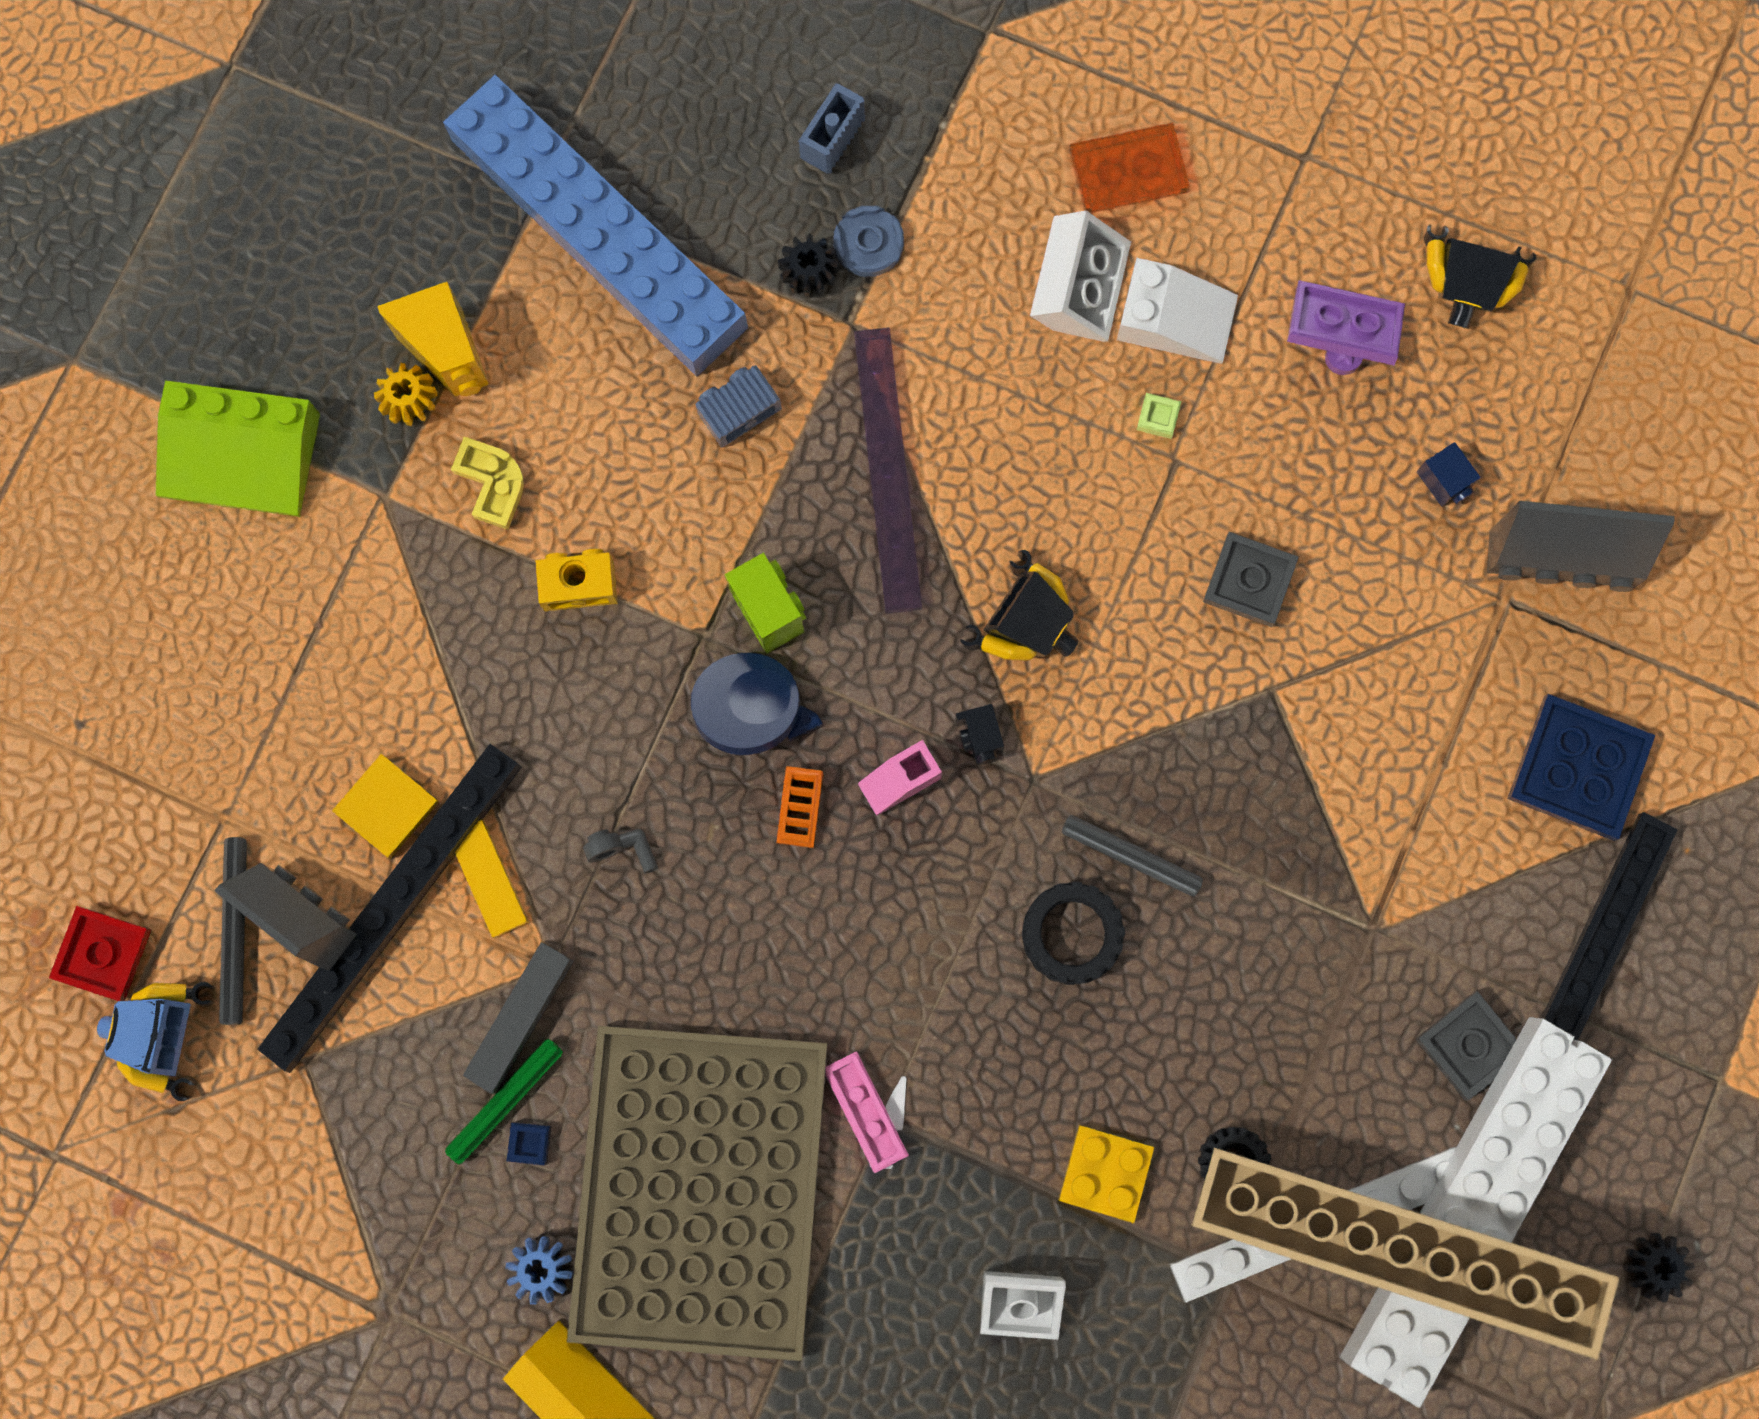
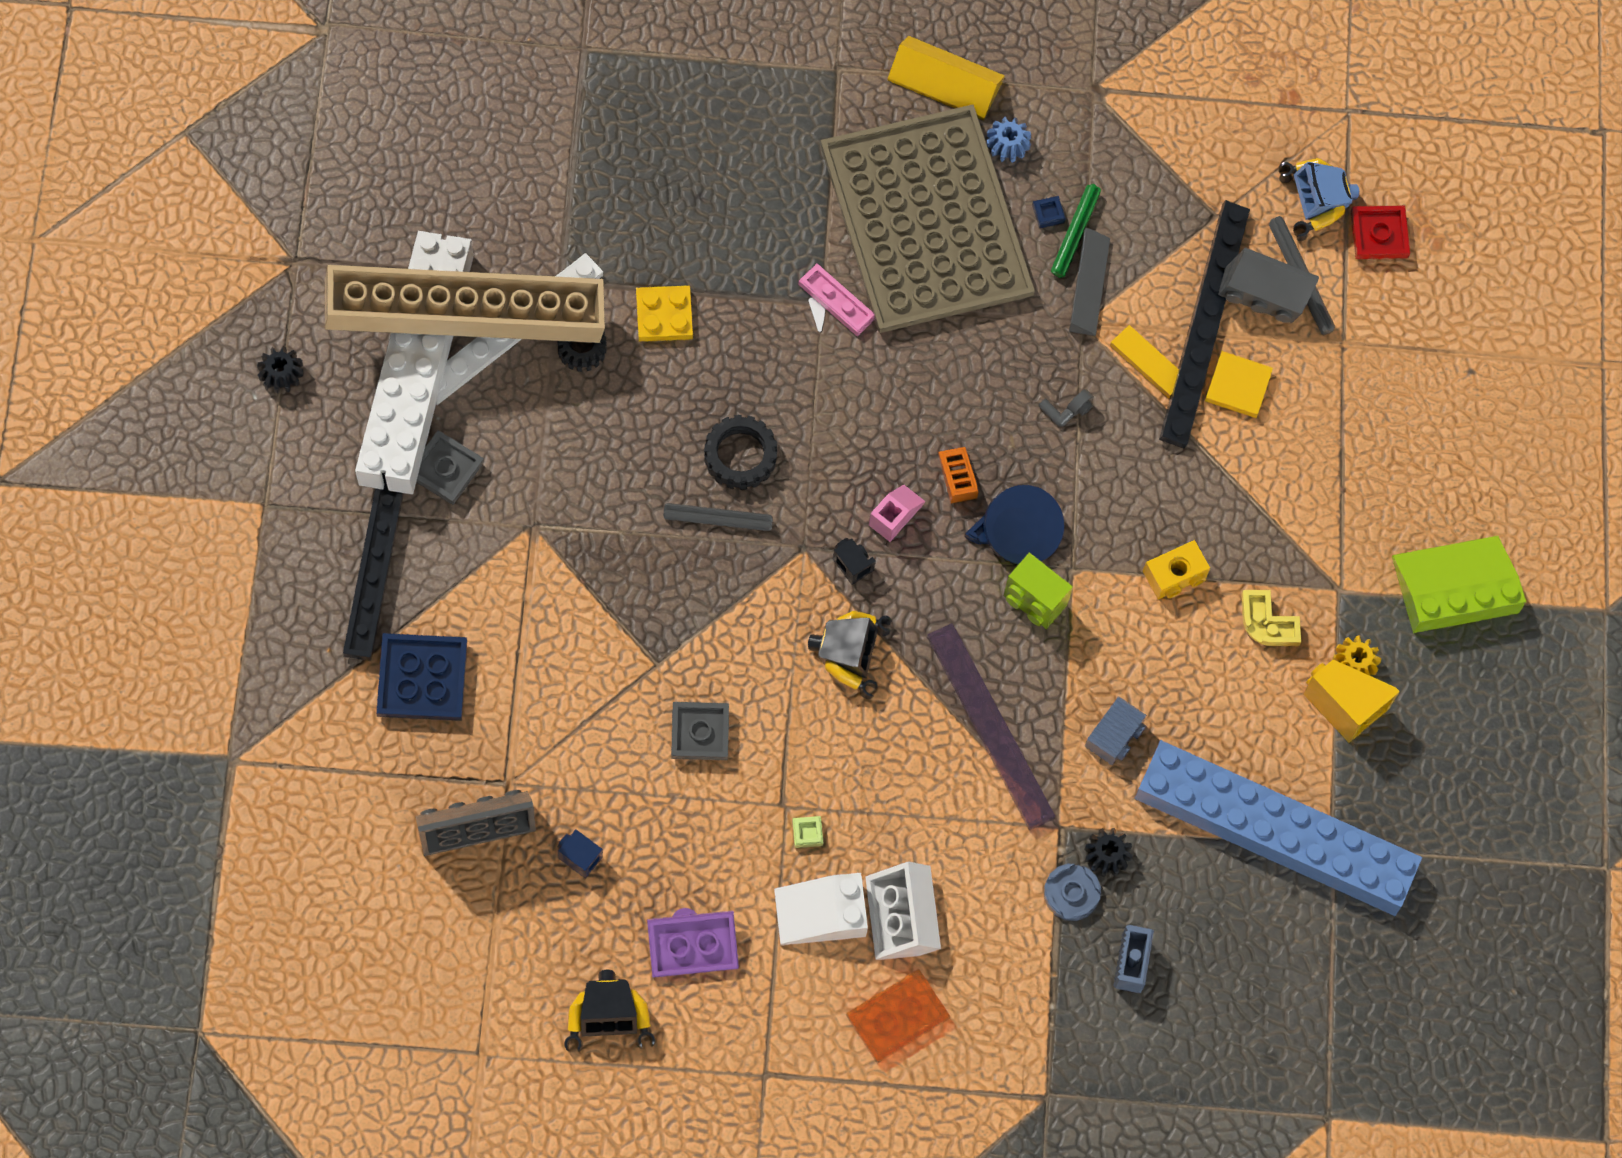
camera: 150 degrees right, 10 degrees down
(1022, 1305) = (693, 220): white slope -> none

